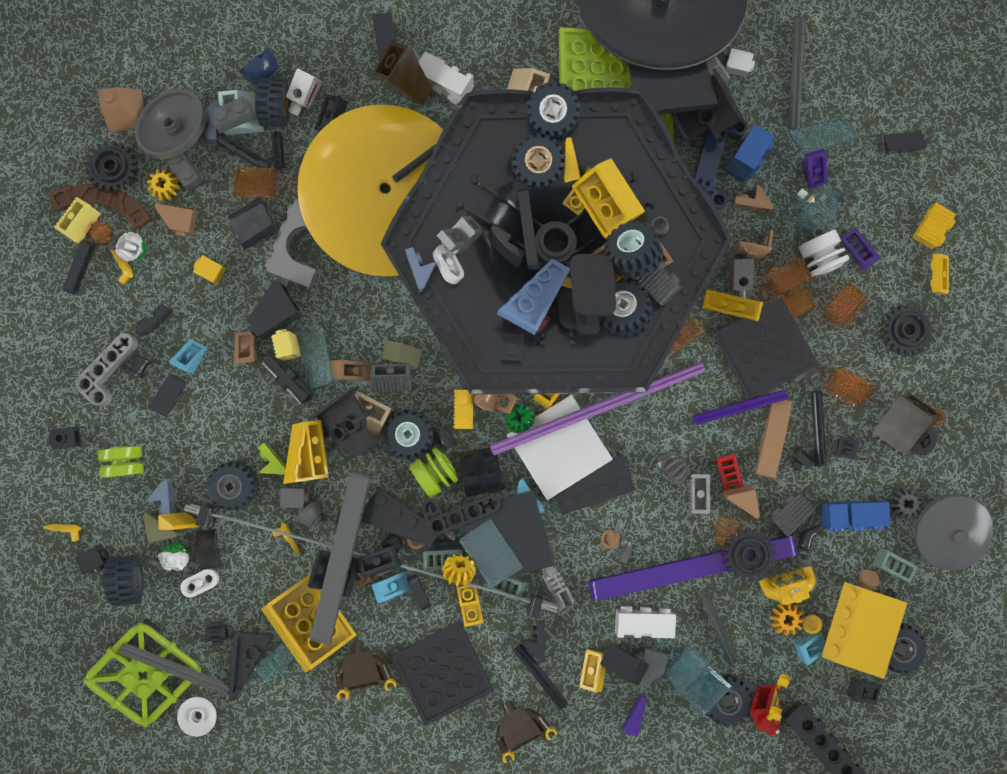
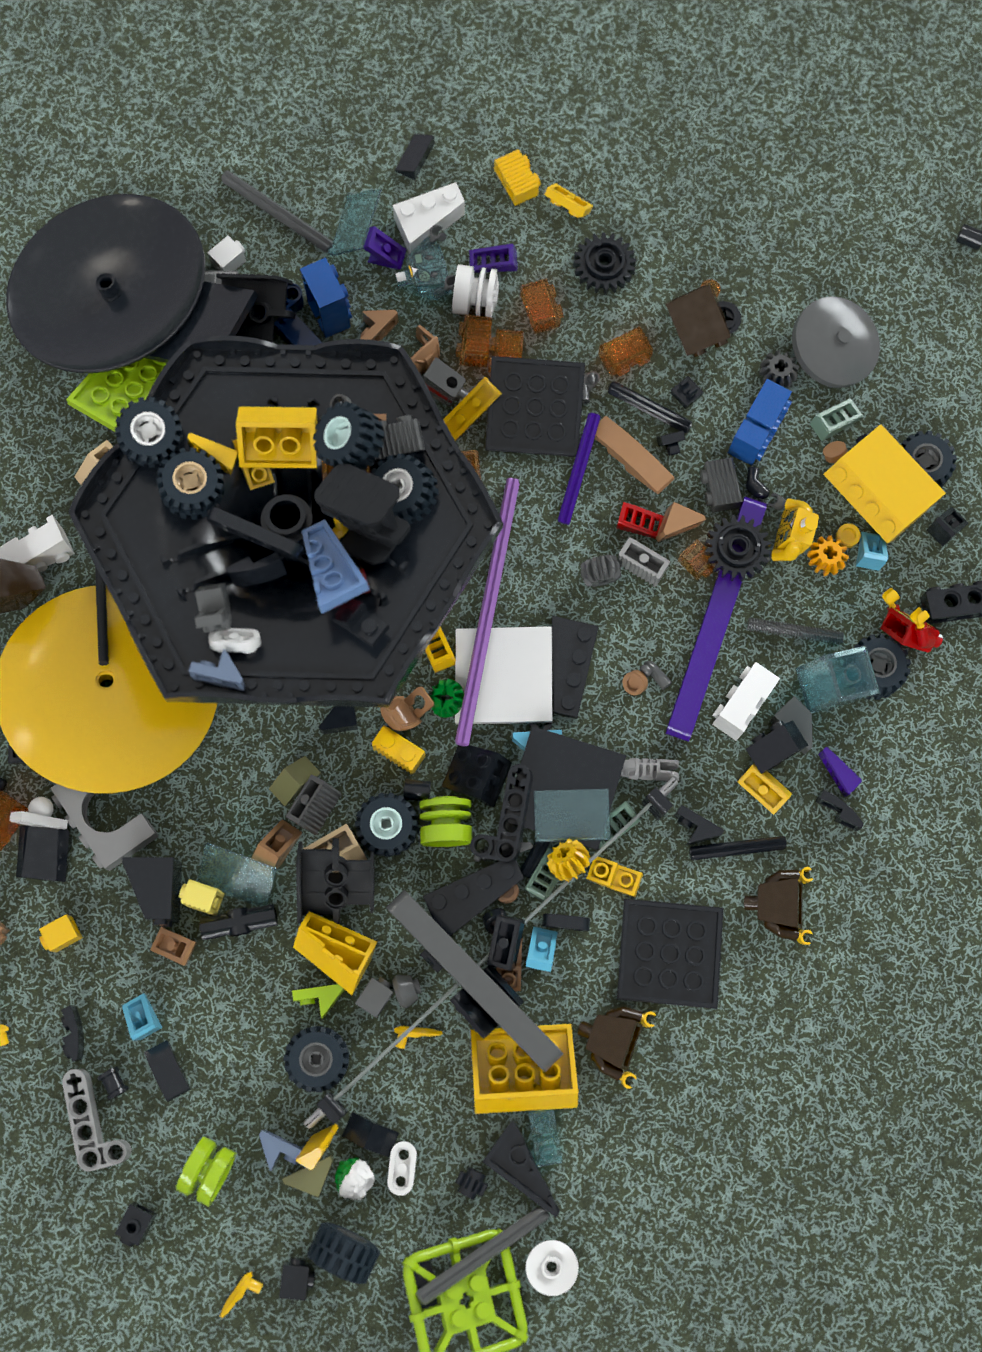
camera: 70 degrees left, 10 degrees down
(272, 205) = (39, 815): none -> white tile
(608, 735) = (845, 815): none -> black slope
(864, 181) = (422, 212): none -> white wedge

